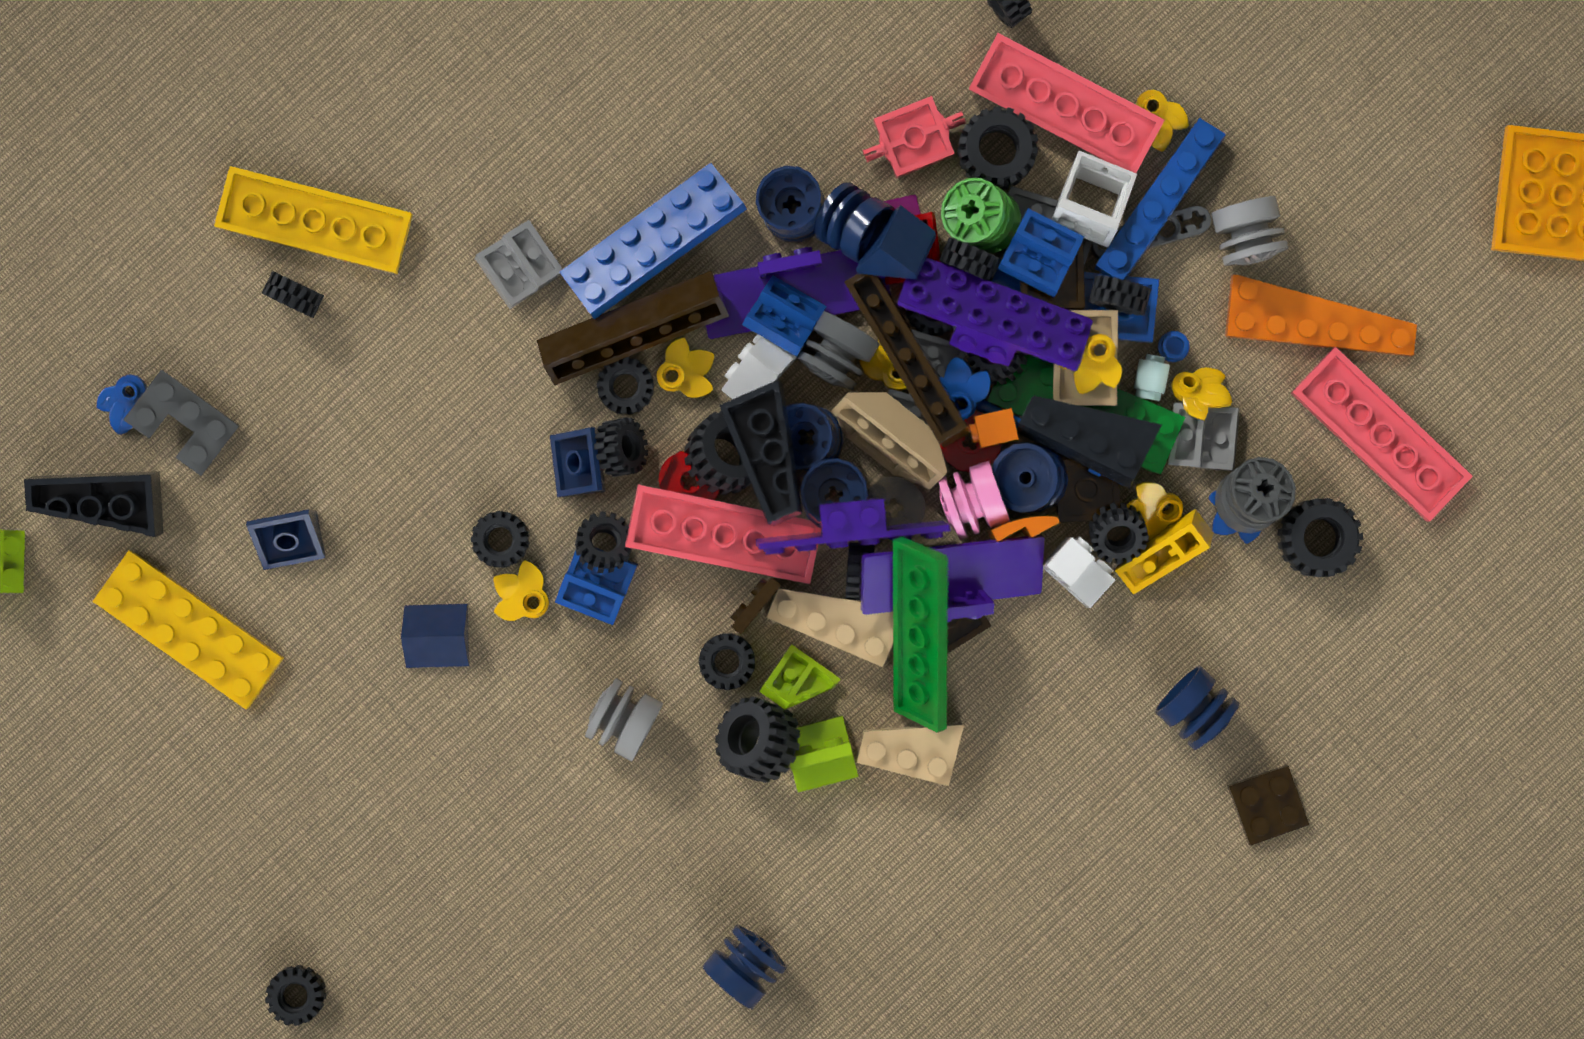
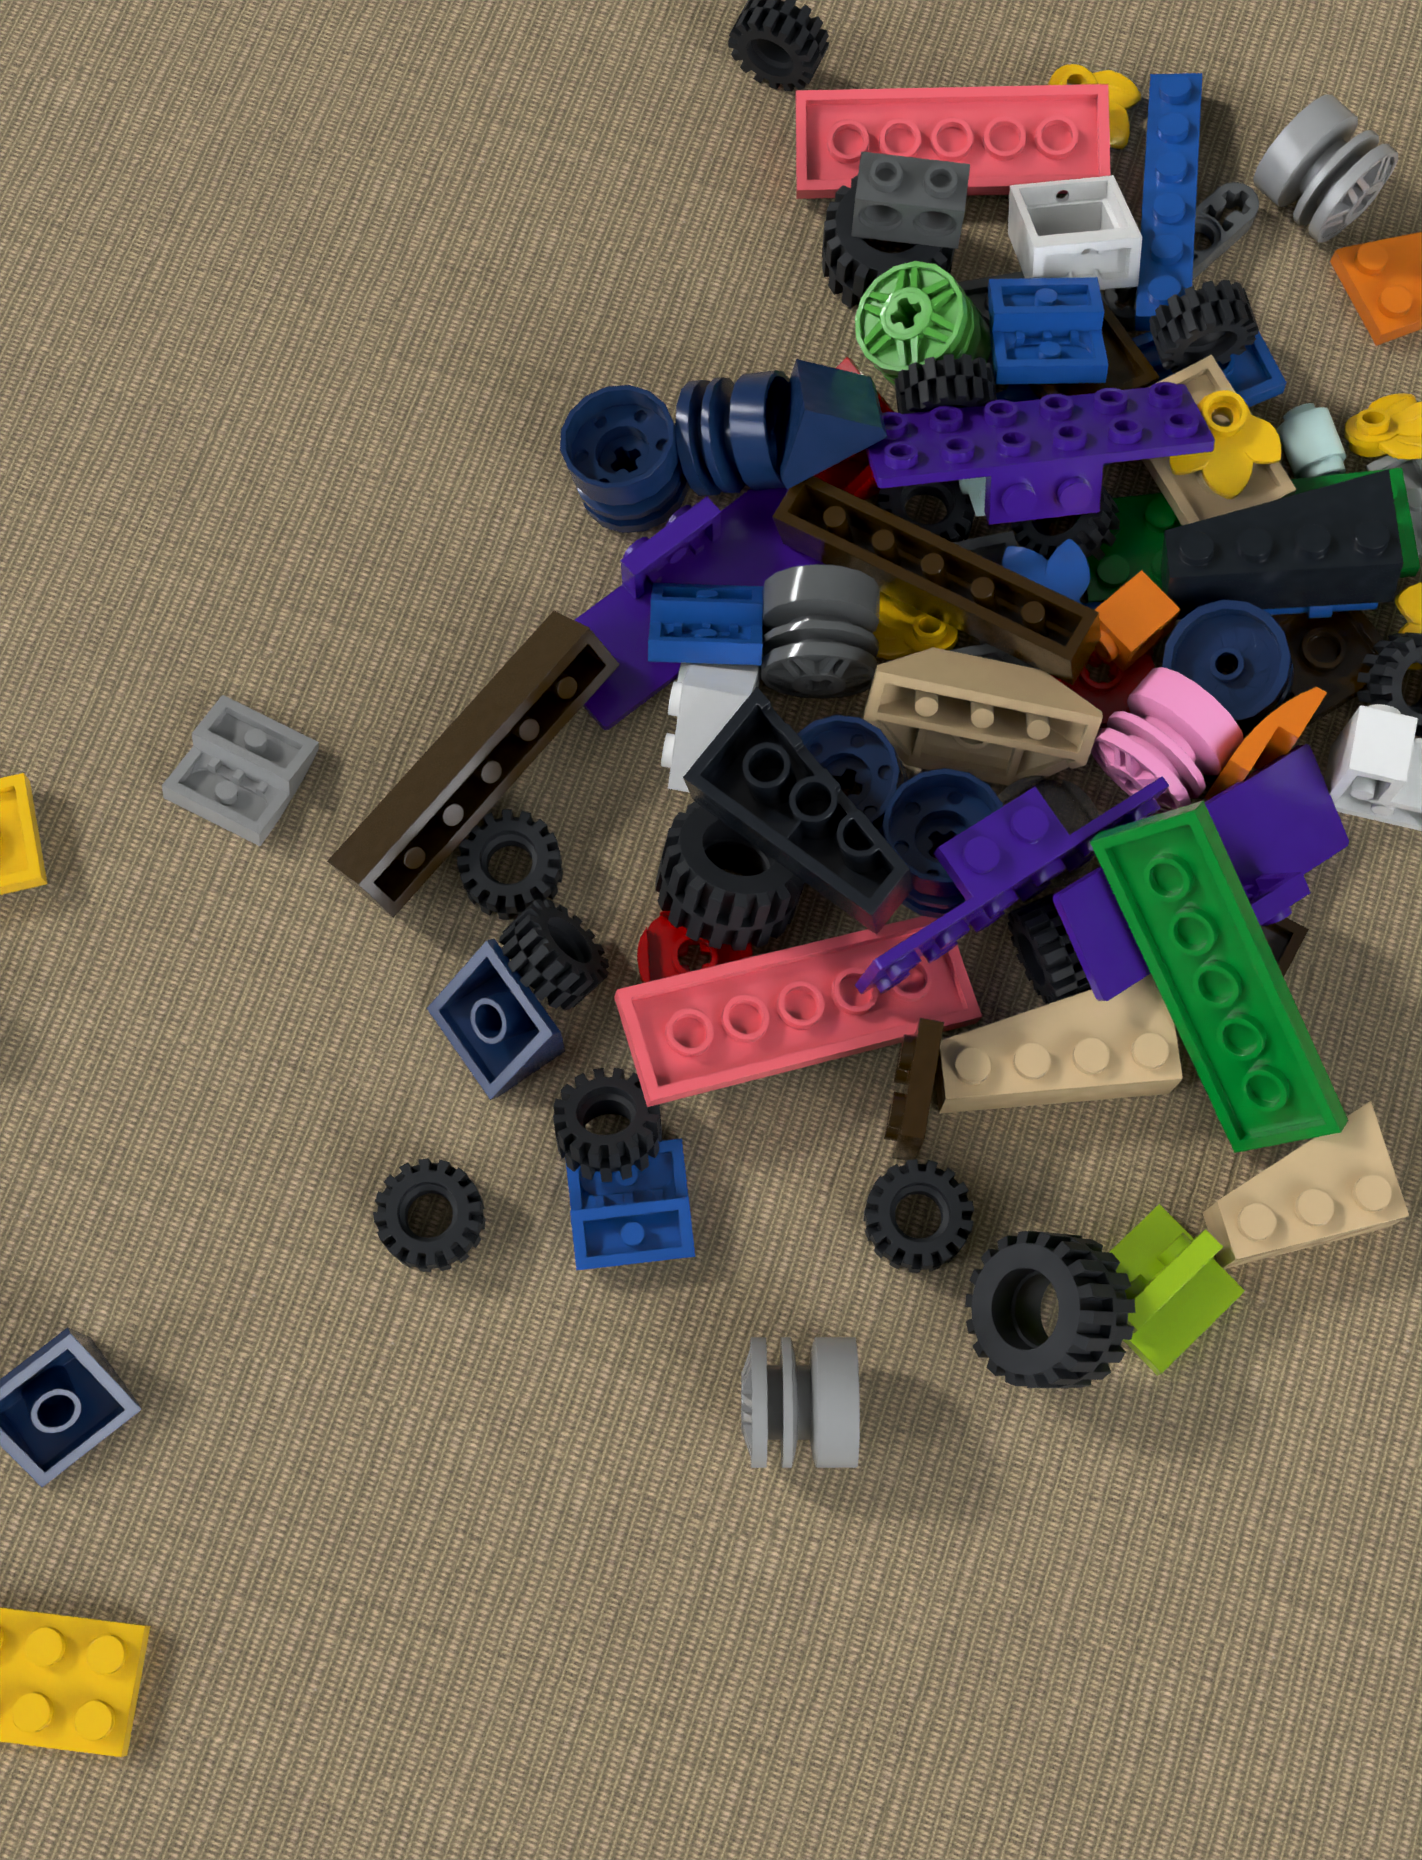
camera: 30 degrees left, 15 degrees down
(435, 635) = (401, 1441): dark blue slope -> none
(517, 591) = (504, 1286): yellow plate -> none
(653, 240) = (435, 625): plate -> none
(690, 367) = (597, 788): yellow plate -> none
(743, 968) = (1259, 1731): dark blue wheel -> none
(797, 679) = (1052, 1179): lime wing -> none
(914, 137) = (755, 293): coral plate -> none
(1010, 144) = (910, 200): none -> dark grey brick
(1173, 346) = (1316, 385): blue plate -> none

